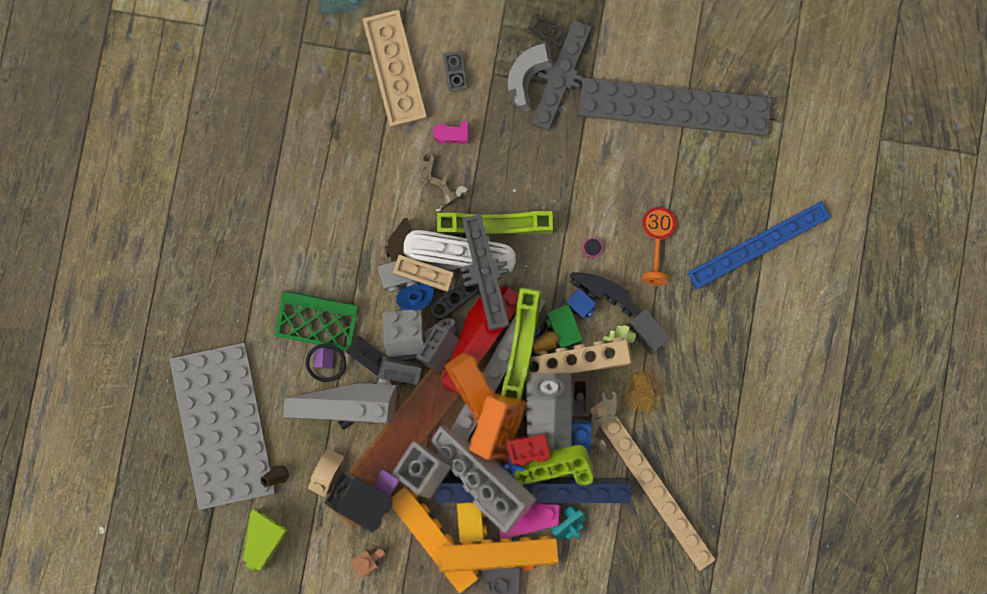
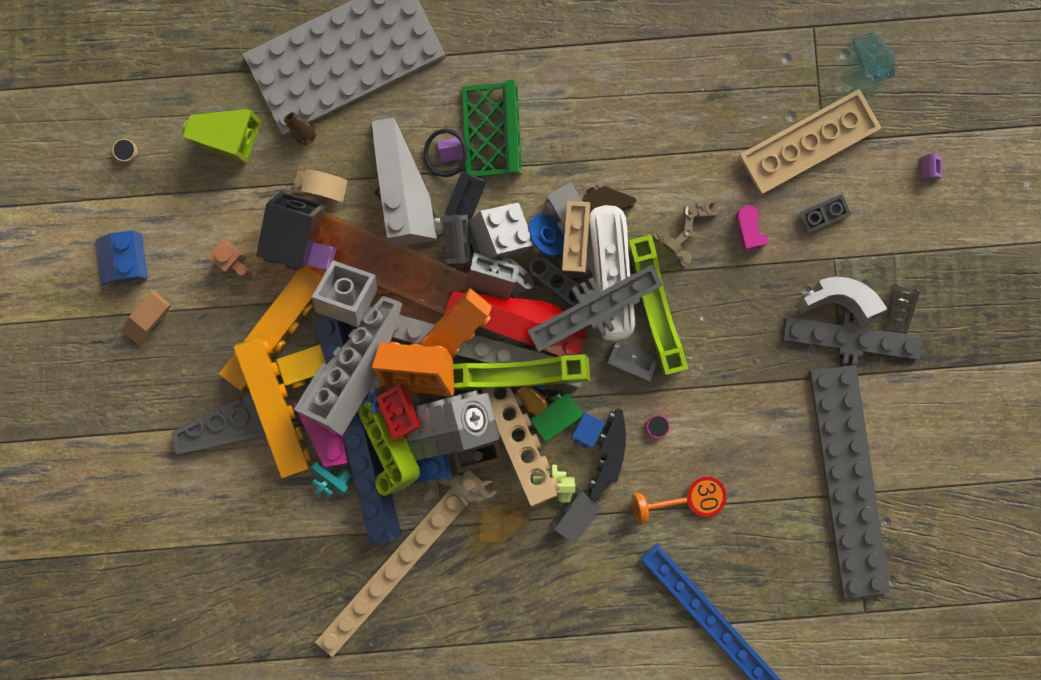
camera: 70 degrees right, 5 degrees up
(535, 254) = (632, 361): none -> dark grey hinge

